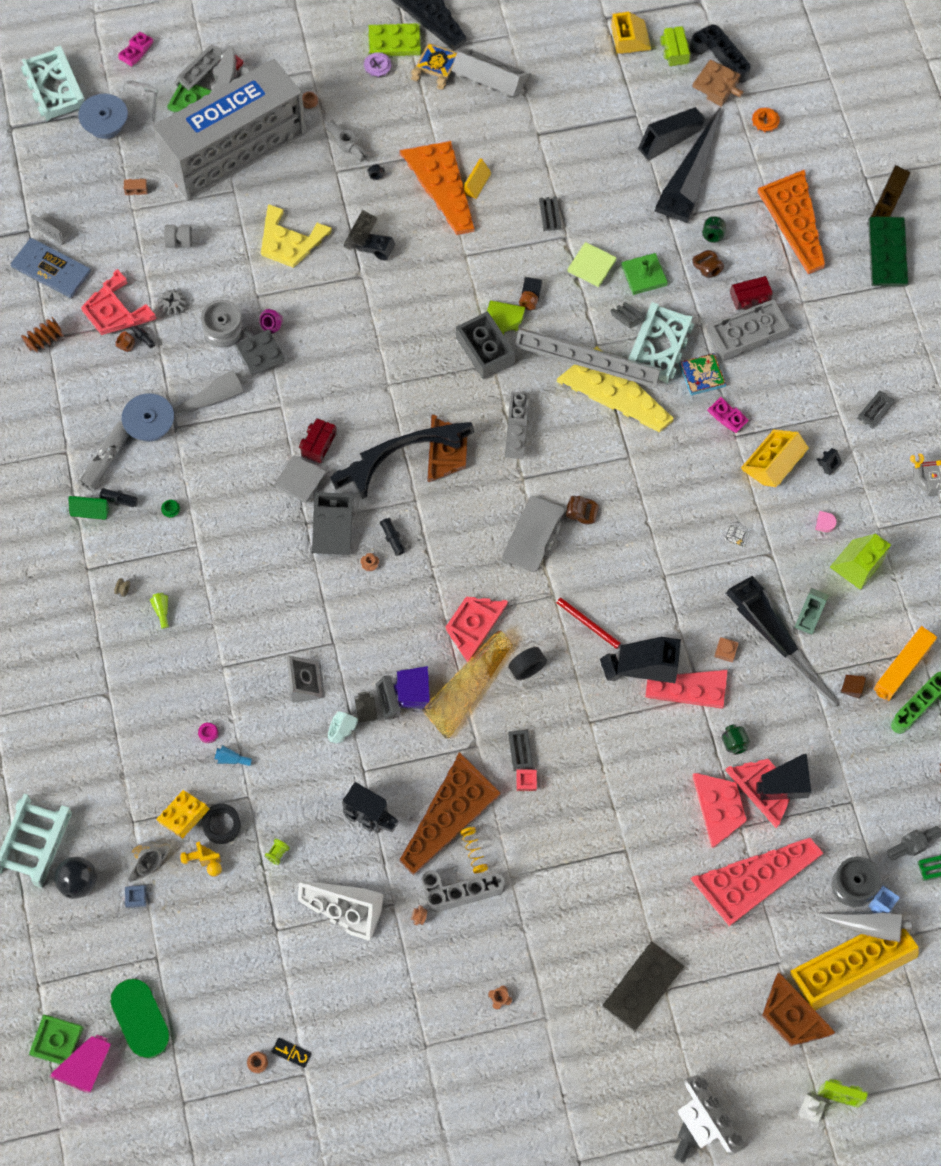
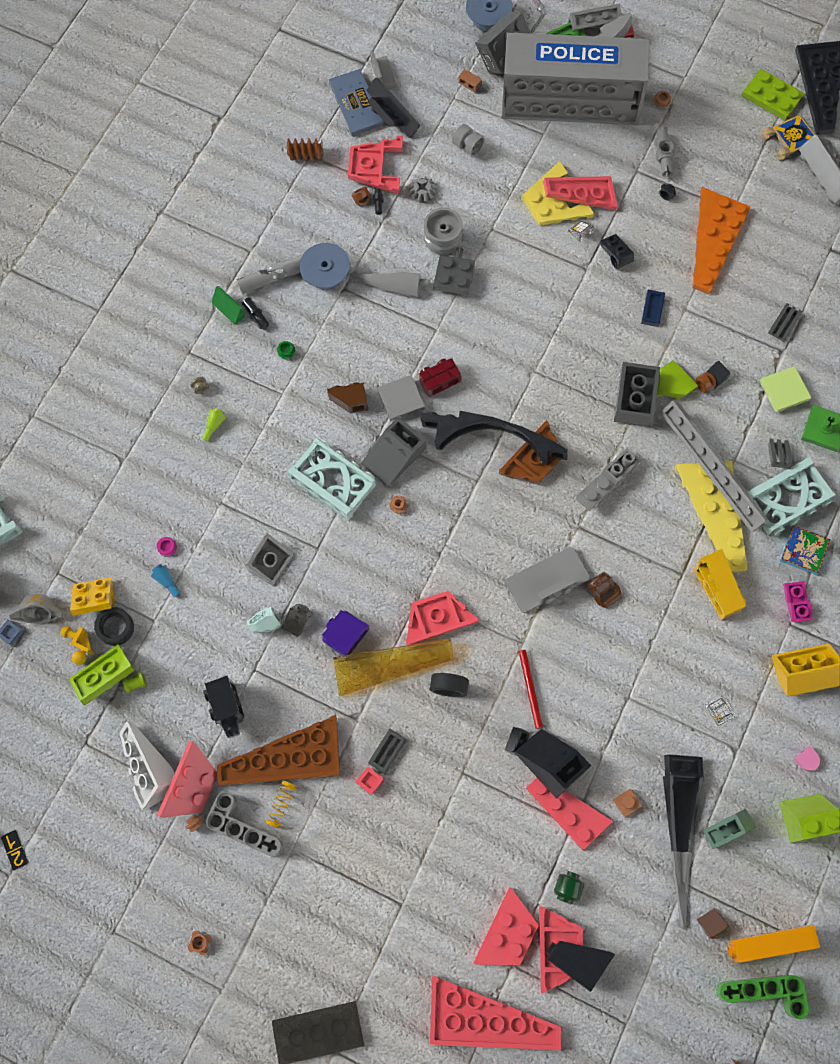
camera: 45 degrees right, 5 degrees up
(89, 253) = (390, 109): none -> black bracket
(138, 136) = (493, 43): none -> dark grey brick
(246, 865) = (101, 674): none -> lime plate
(258, 508) = (349, 397): none -> reddish brown slope
(271, 320) = (483, 255): magenta cone -> none
(309, 214) = (582, 190): none -> coral wing
(321, 596) = (339, 502): none -> light aqua fence
(331, 247) = (581, 229): none -> clear slope
(360, 230) = (614, 229): clear smoke bracket -> none
(379, 59) = (747, 102): lavender gear -> none
(387, 697) = (319, 625): dark grey tile -> none
(392, 536) = (433, 497): black pin -> none
(392, 888) = (190, 784): none -> coral wing
(440, 271) = (653, 308): none -> dark blue tile
(477, 179) = (746, 252): yellow slope -> none
(663, 442) = (720, 584): none -> yellow wedge

